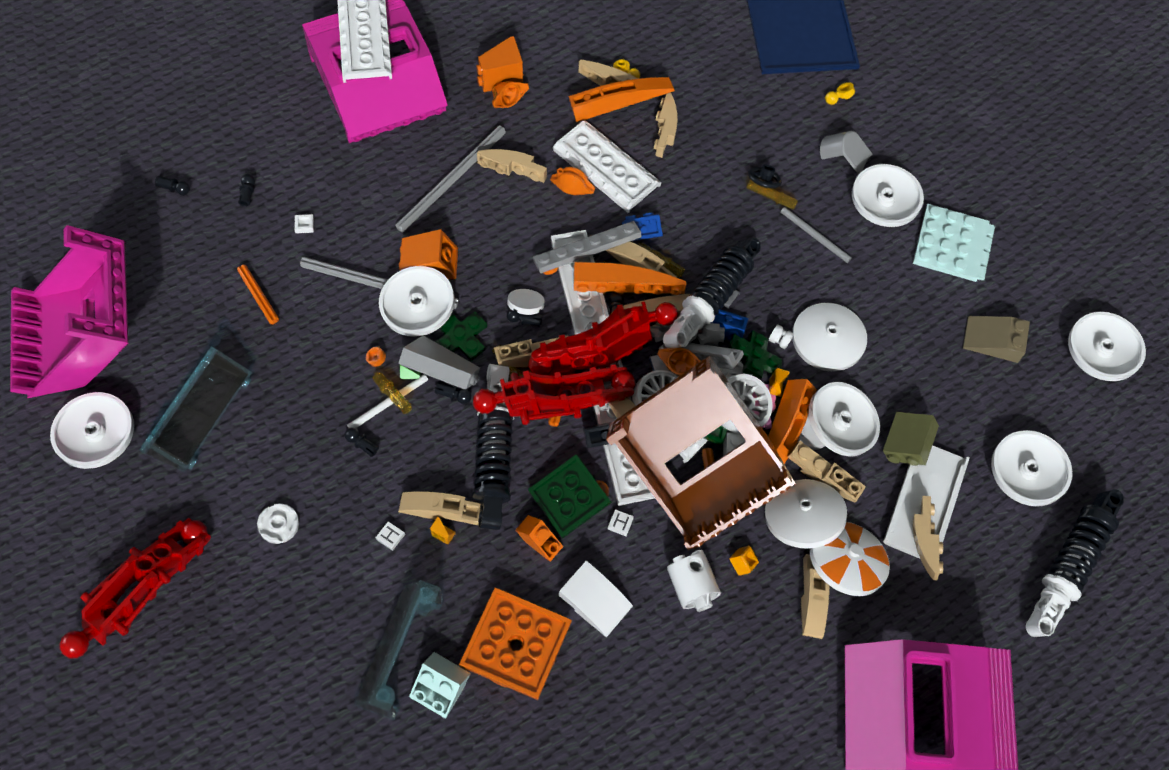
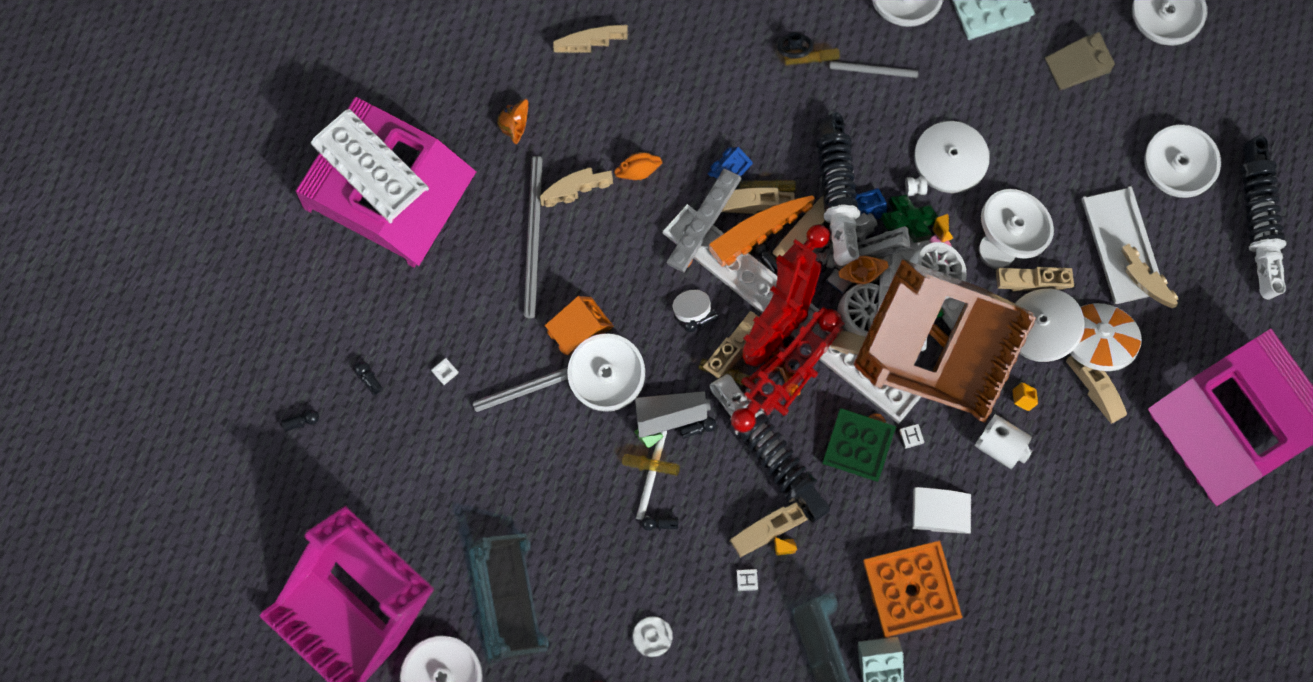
camera: 35 degrees left, 10 degrees up
(258, 294) = (463, 462): orange axle -> none
(375, 356) = (609, 444): orange tile -> none
(462, 335) = (661, 373): dark green plate -> none
(500, 65) = (490, 98): orange slope -> none
(539, 537) = (861, 495): orange slope -> none
(596, 435) = (843, 375): black slope -> none
(606, 165) = (653, 129): white ladder -> none
(617, 95) = (616, 56): orange slope -> none
(624, 65) = (605, 20): yellow plate -> none
(666, 123) = (673, 48): tan slope -> none
(791, 416) = (975, 251): orange slope -> none
(911, 438) = (1079, 203): olive brick -> none

